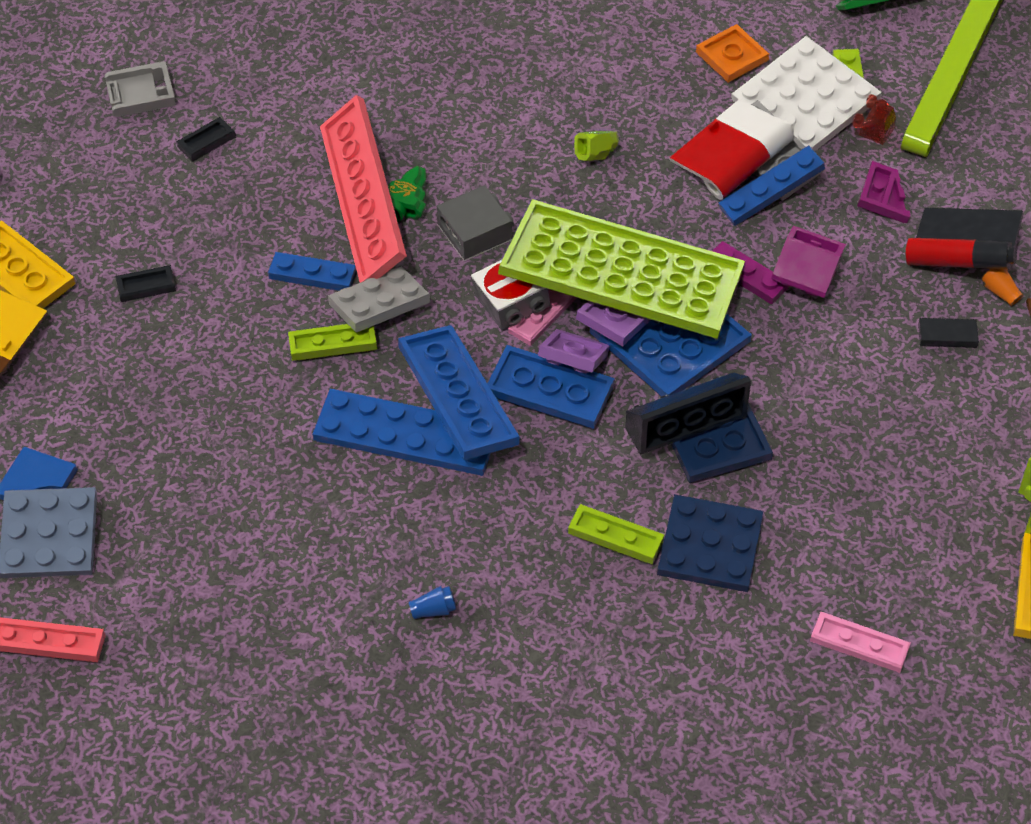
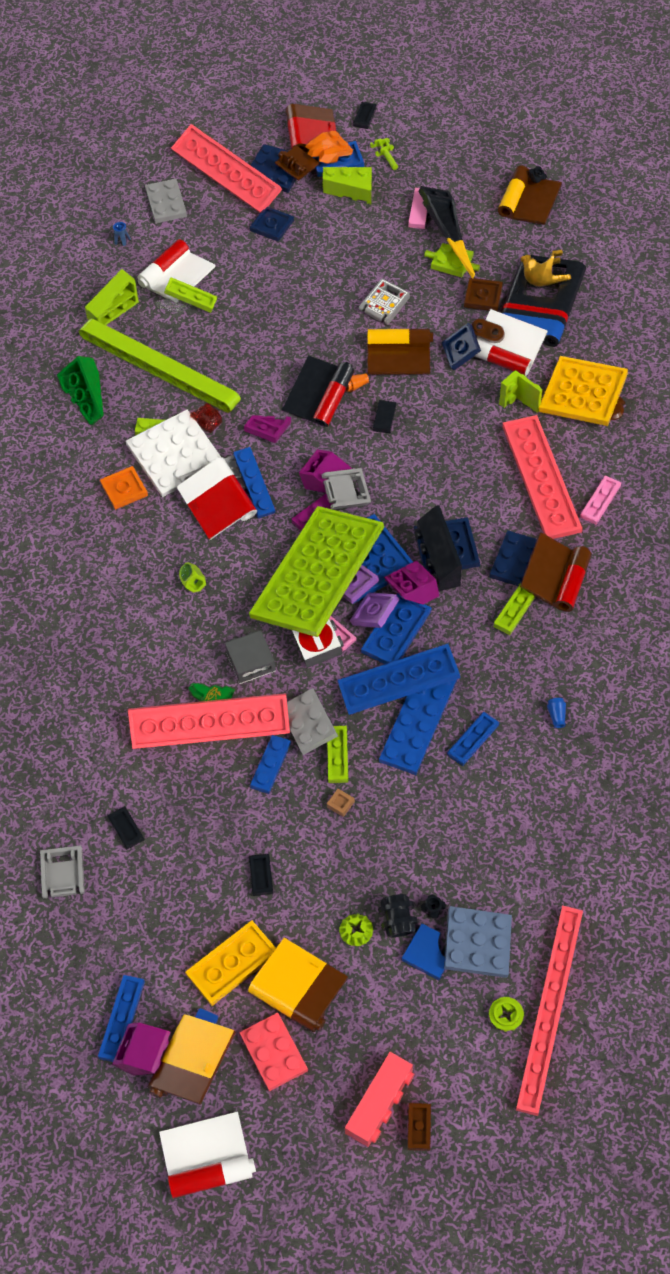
camera: 80 degrees left, 5 degrees up
(69, 403) = (356, 938): none -> lime gear
(80, 430) = (397, 915): none -> black piece
(100, 470) = (433, 900): none -> black plate
(255, 352) = (340, 802): none -> medium nougat plate
(379, 502) = (473, 738): none -> blue tile
(622, 384) = (414, 583): none -> magenta slope
(691, 577) = (556, 572): none -> reddish brown door
(779, 284) = (341, 489): none -> light grey container
(881, 550) = (542, 477): none -> coral plate

